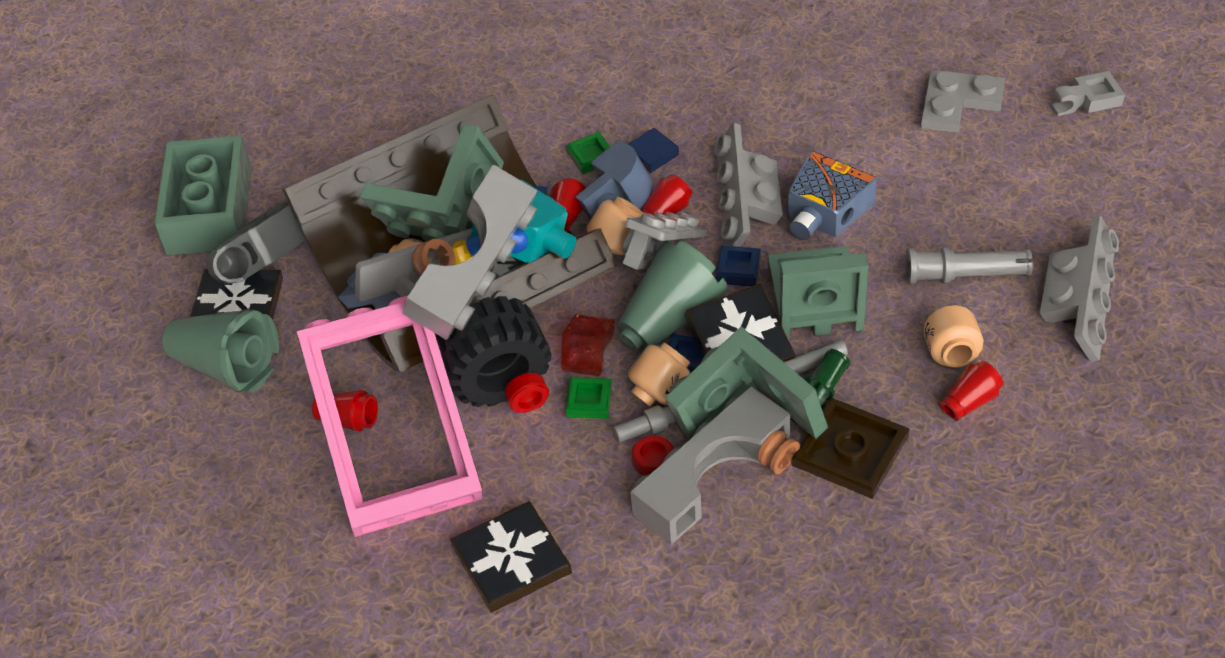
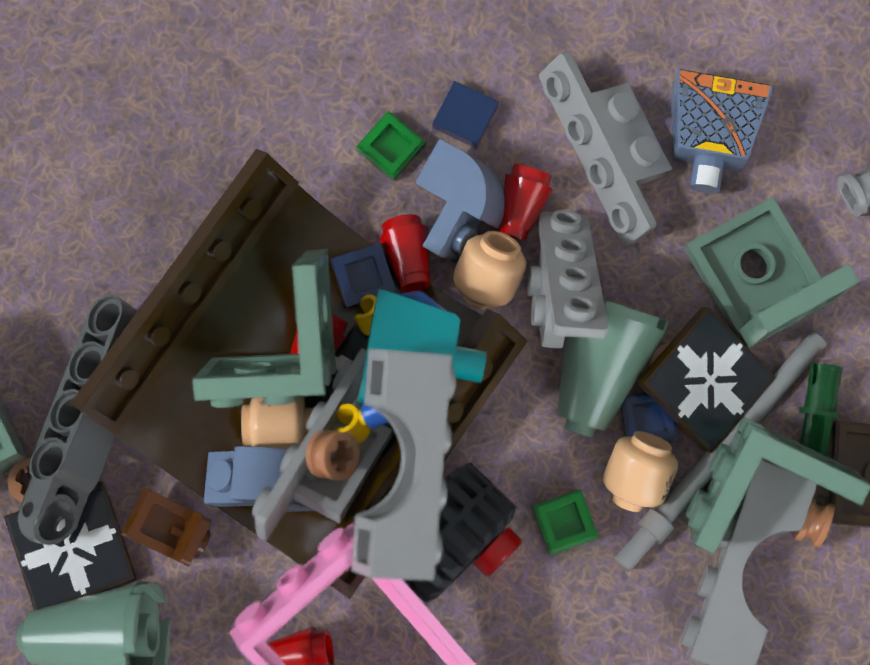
camera: 30 degrees left, 30 degrees up
(304, 303) = (168, 527): none -> reddish brown bracket
(585, 344) = (530, 448): clear red bracket -> none
(650, 453) = (674, 574): red tile -> none
(738, 265) = (650, 262): dark blue tile -> none

